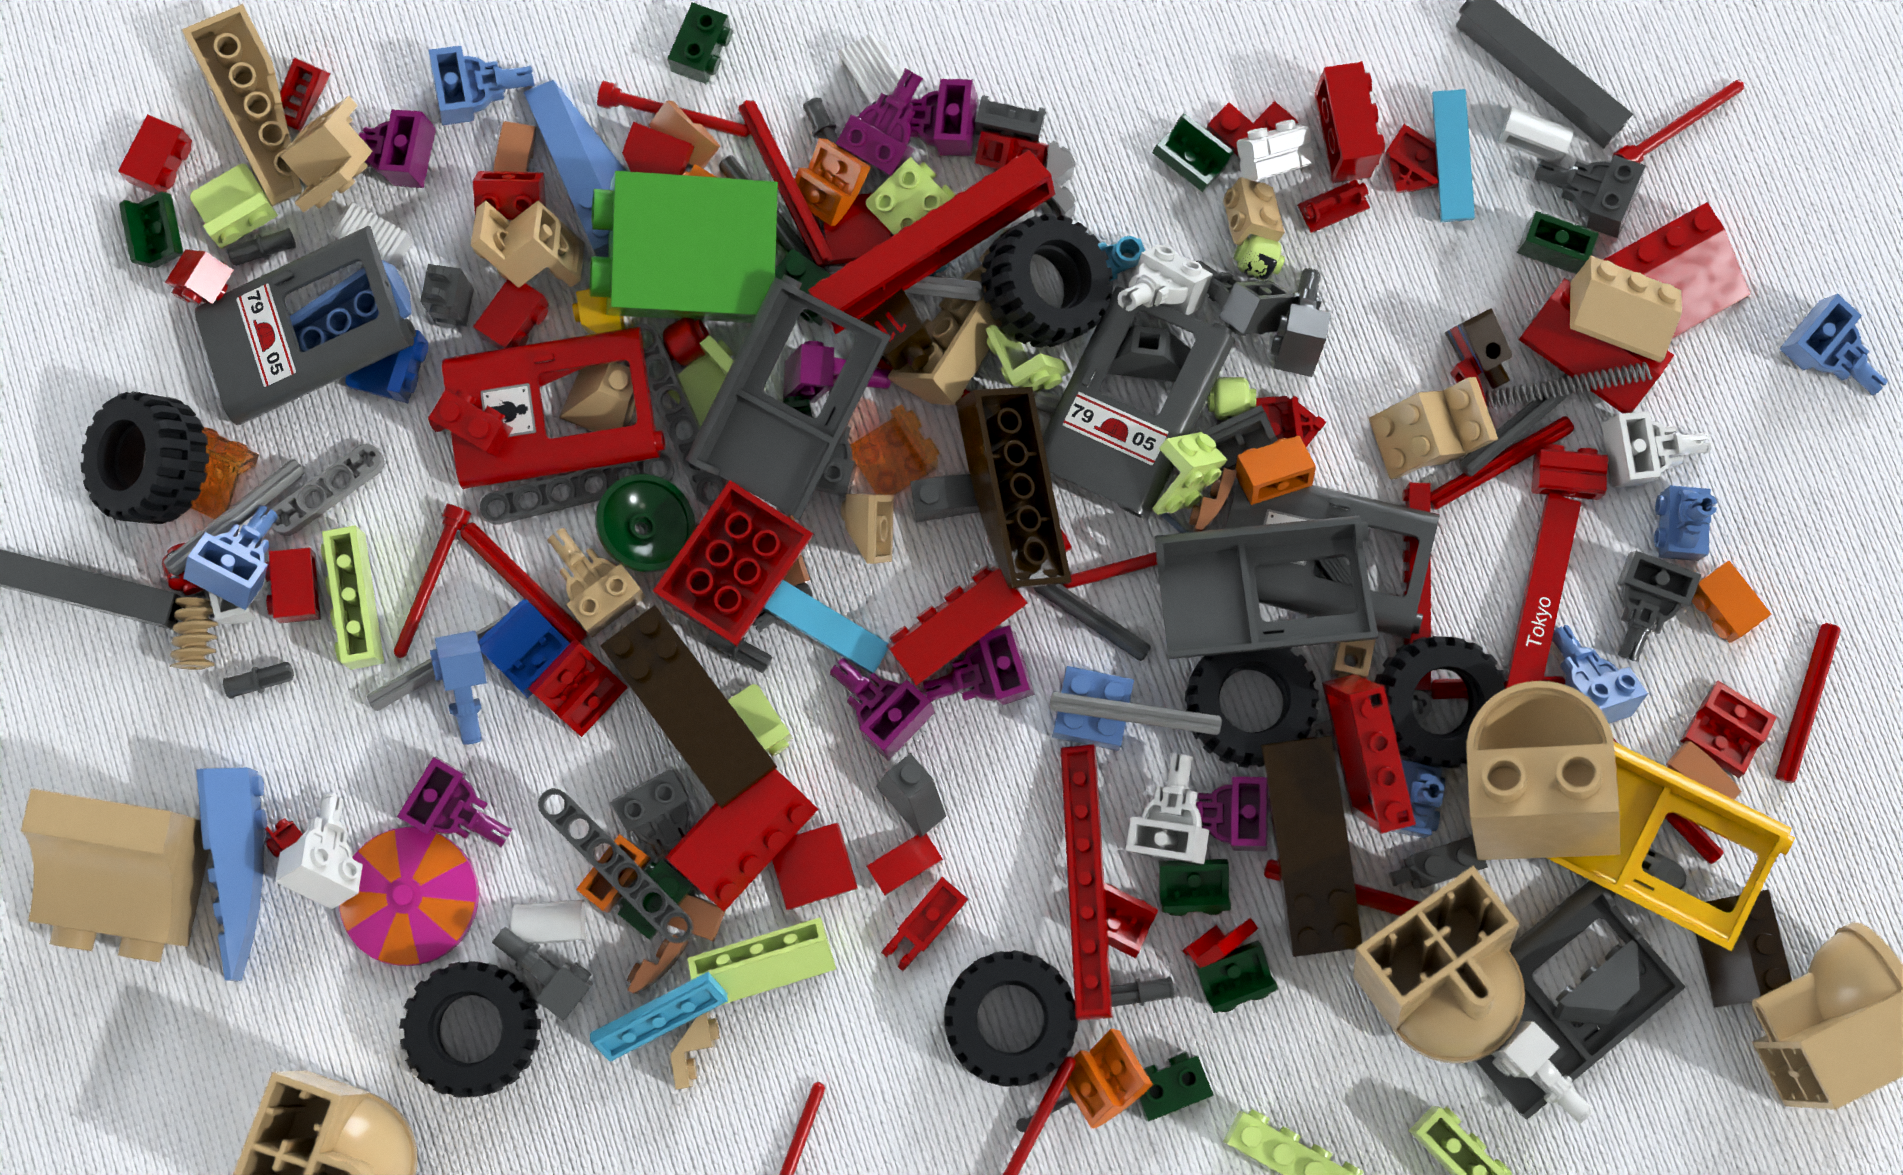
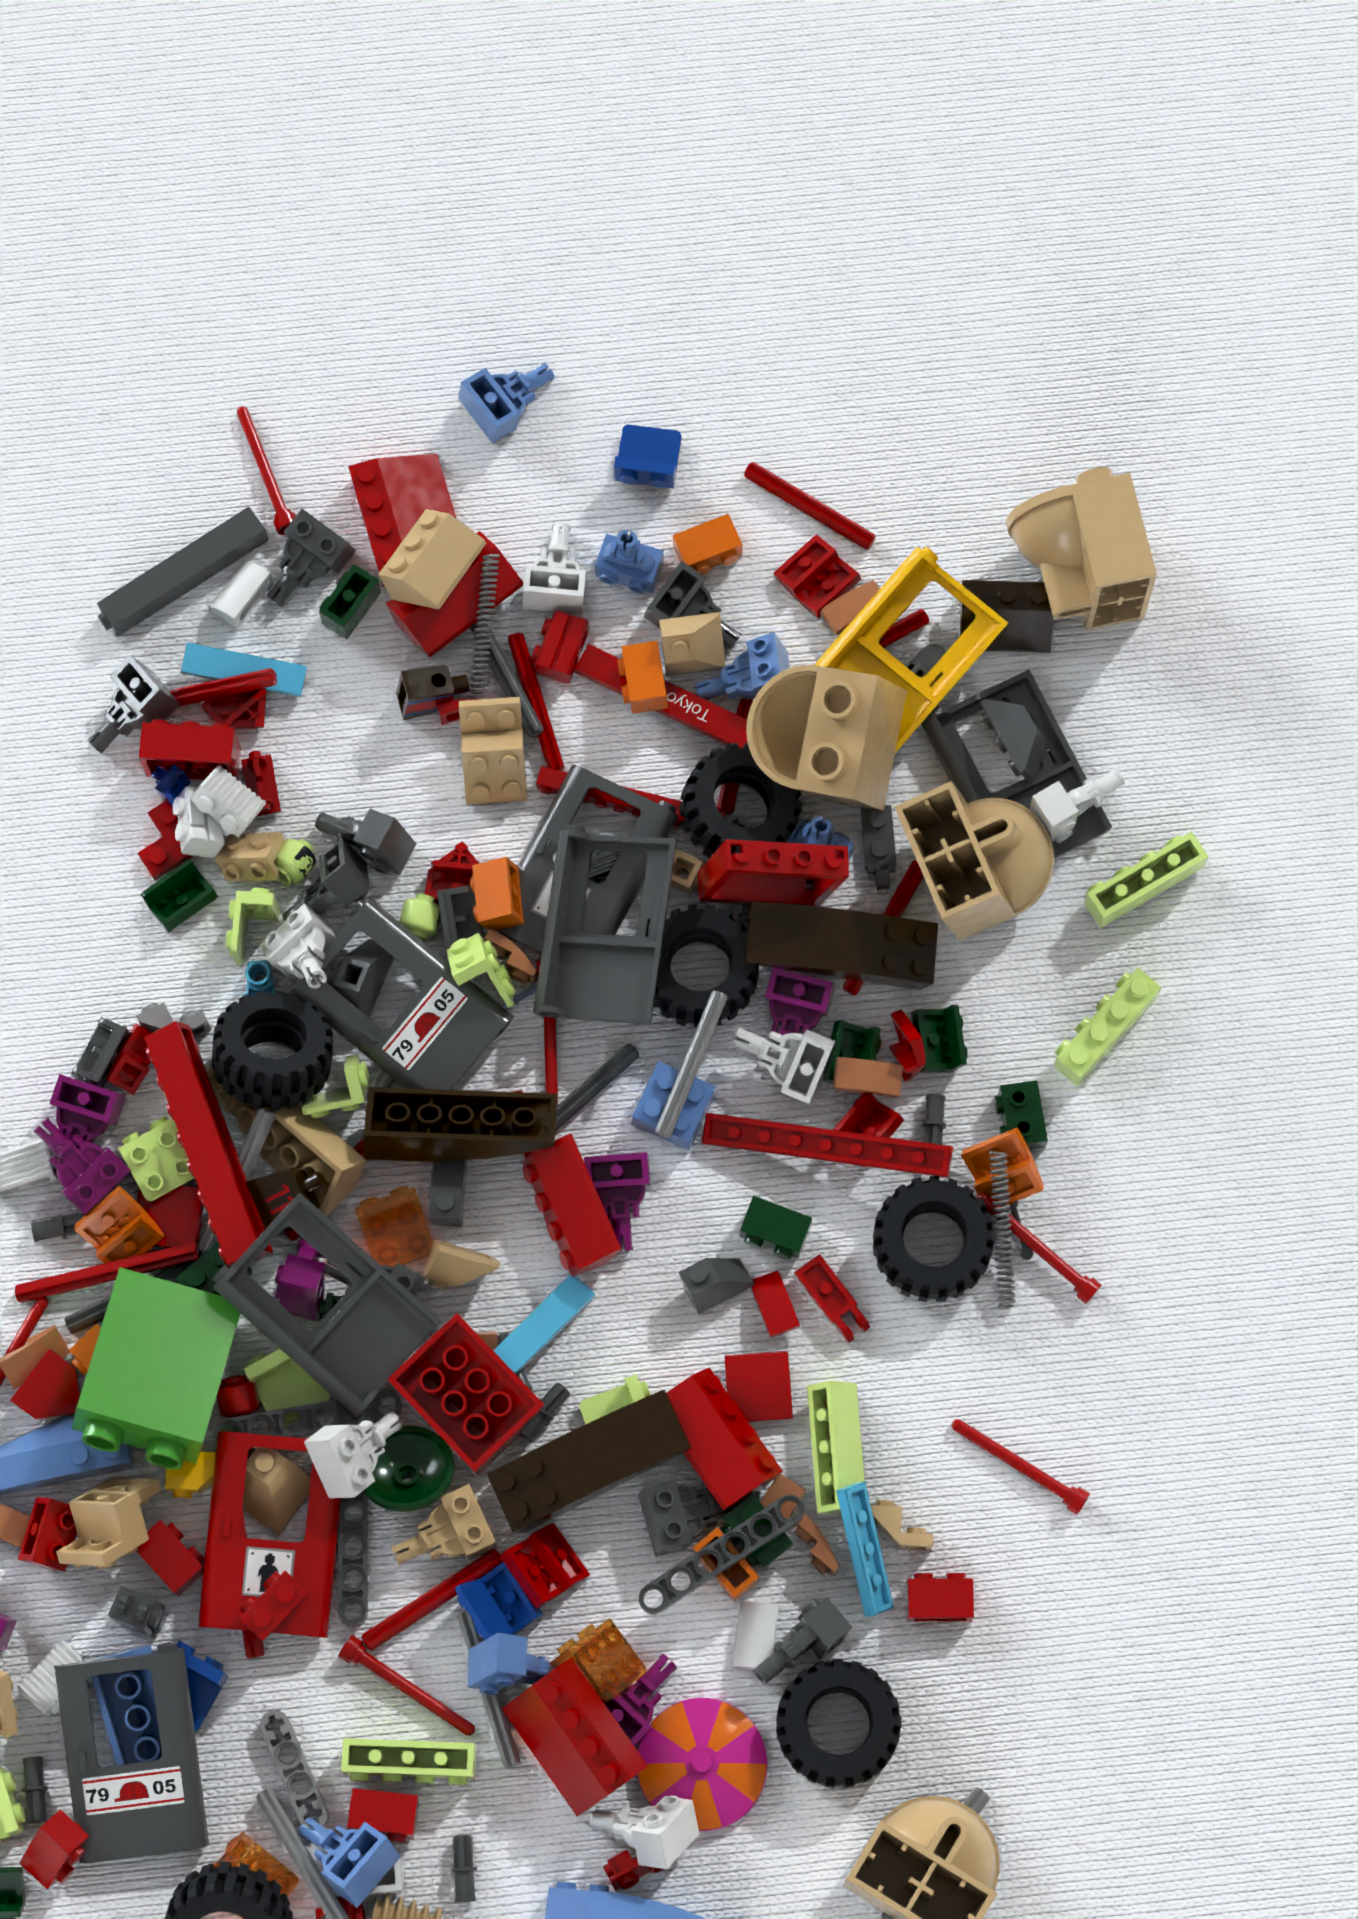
camera: 75 degrees left, 5 degrees down
(401, 760) = (574, 1737): none -> red slope
(485, 767) = (603, 1659): none -> clear orange bracket
(626, 1109) = (940, 1599): none -> red brick
(642, 461) = (349, 1454): none -> white brick
(887, 712) = (629, 1290): magenta brick -> none
(984, 845) = (775, 1228): none -> dark green brick
(1038, 1089) = (1004, 1221): none -> light grey piece
(1171, 907) = (867, 1076): none -> nougat slope
(1185, 216) = (253, 905): none -> yellowish green bracket
(1302, 170) = (227, 801): none -> white brick
(1309, 111) = (170, 782): none -> clear blue tile
(1390, 59) = (136, 700): none -> dark grey brick
(1426, 136) = (225, 687): none -> red axle
(1557, 566) = (644, 677): none -> orange brick
(1610, 609) = (692, 643): none -> tan slope
(1812, 515) = (648, 456): none -> blue bracket

